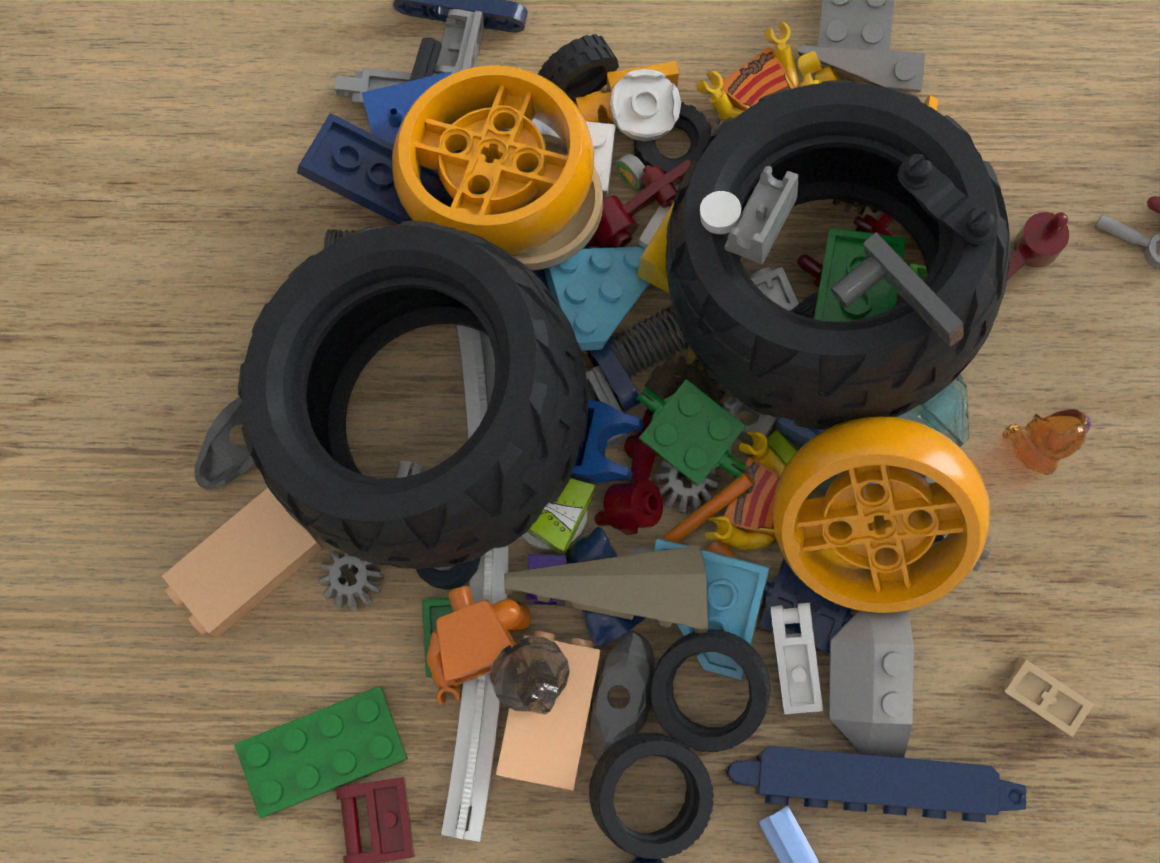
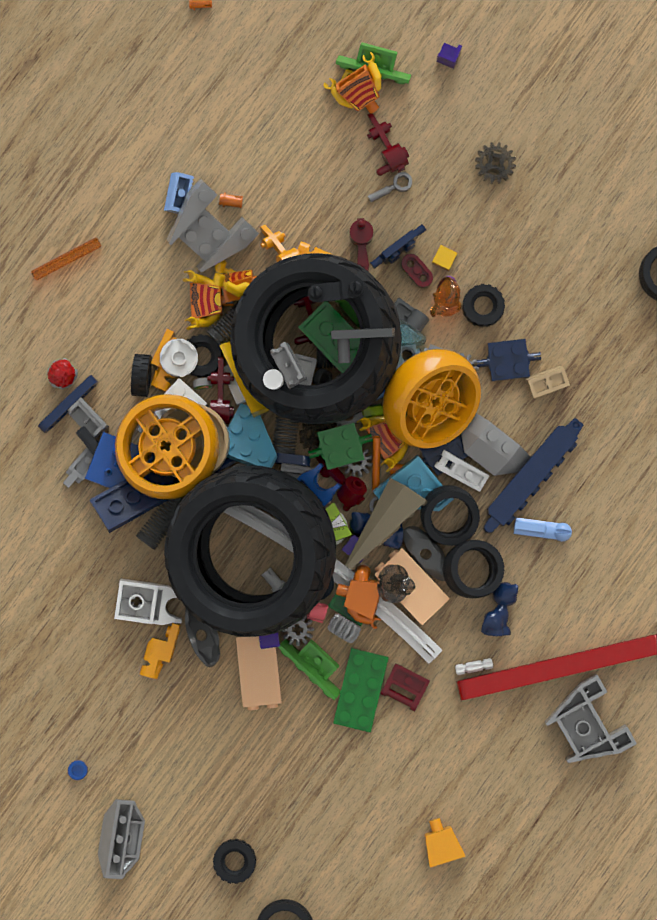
camera: 50 degrees left, 10 degrees up
(172, 391) = (159, 651): none -> light orange plate
(224, 327) = (153, 604): none -> white brick
(303, 545) = (269, 641): none -> dark purple panel
(311, 644) = (314, 664): none -> bright green bracket
(401, 588) = (318, 613): none -> coral leg
(402, 649) = (344, 628): none -> light grey gear
(933, 28) = (230, 200): none -> orange pin
(981, 408) = (410, 315): none -> dark grey plate
(1030, 608) = (508, 359): none -> dark blue plate
(1052, 367) = (419, 269): none -> dark red plate
(1068, 307) = (405, 244): none -> dark blue plate
(1104, 394) = (444, 257): none -> yellow tile
(1105, 487) = (476, 318): none -> black tyre

